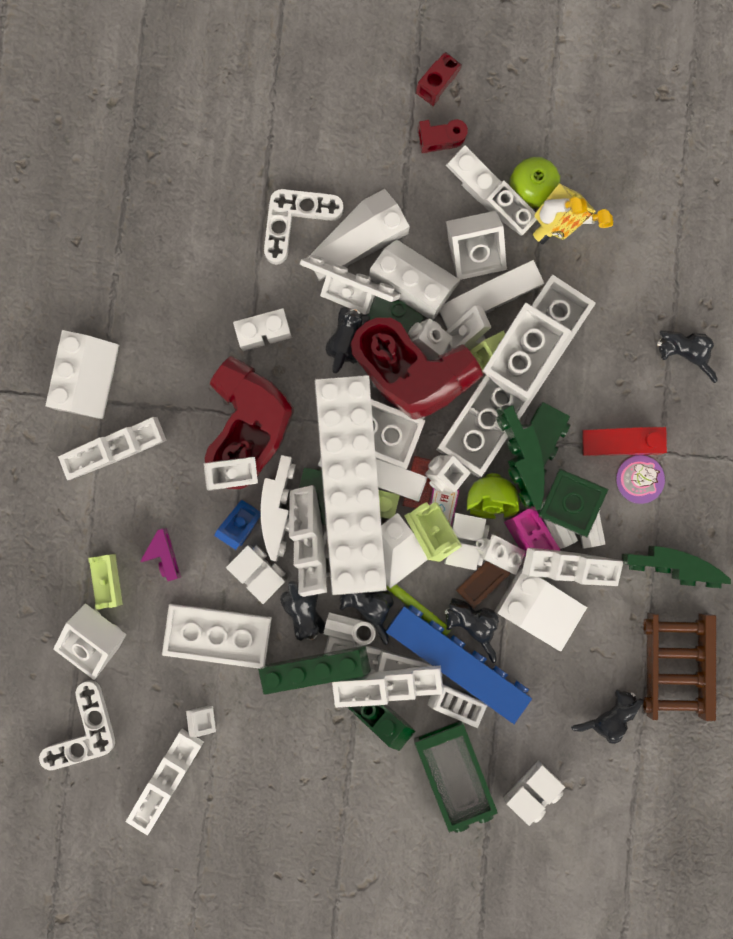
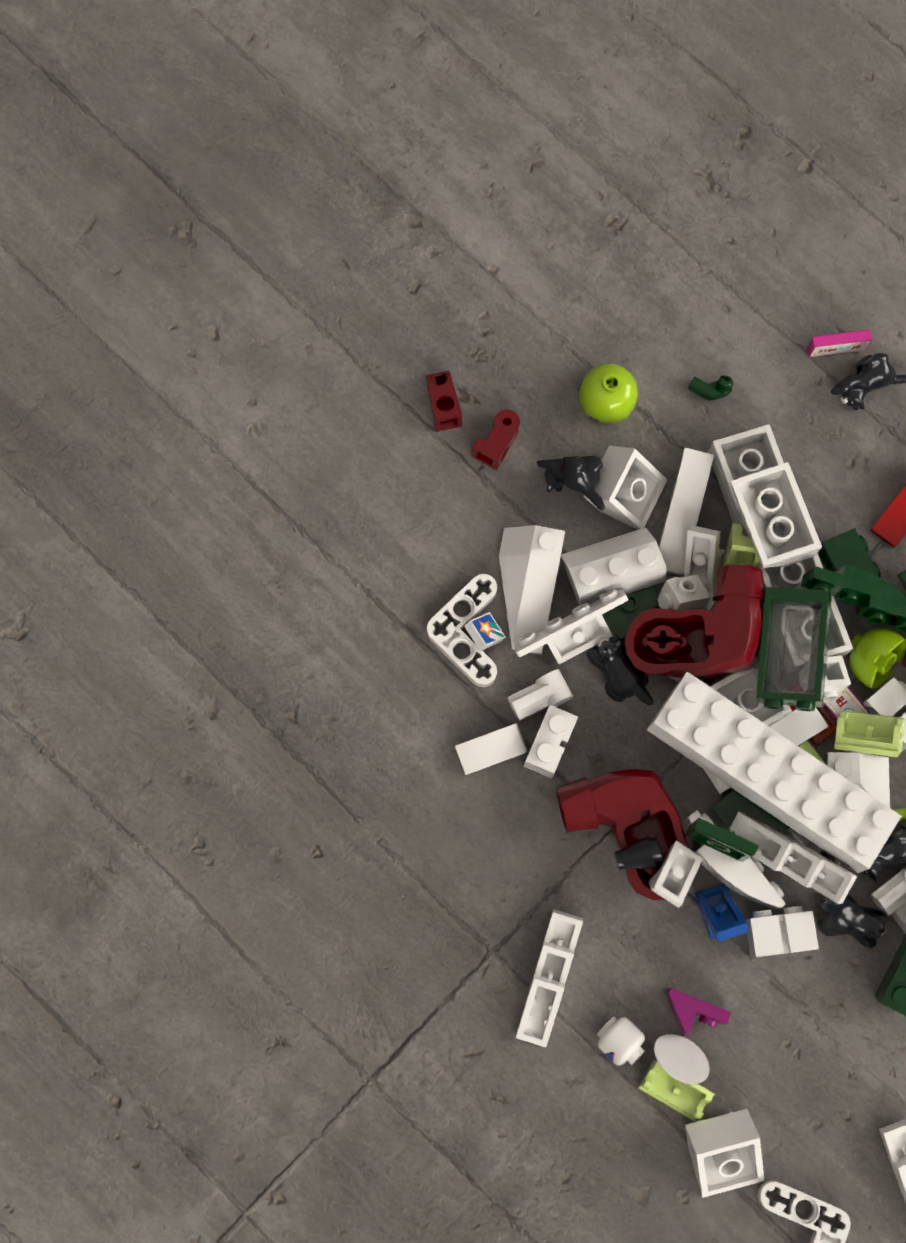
camera: 55 degrees left, 10 degrees down
(82, 375) = (456, 948): white slope -> none
(106, 523) = (621, 1041): none -> white head
(124, 570) = (681, 1059): none -> white sticker
(201, 721) = (886, 1104): white tile -> none
(216, 636) = (811, 1023): white tile -> none
(228, 296) = (491, 748): none -> white slope
(228, 442) = (641, 854): none -> black cone
(278, 485) = (721, 839): none -> dark green plate
(294, 302) = (547, 690): none -> white piece
(302, 230) = (484, 631): none -> tile
(446, 435) = (794, 648): none -> piece
(455, 204) = (576, 473): none -> black animal
(491, 192) = (587, 436): white slope -> none
(565, 212) = (663, 387): torso -> none
(593, 250) = (713, 390): none -> dark green arm
(699, 308) = (839, 343): none -> dark pink tile

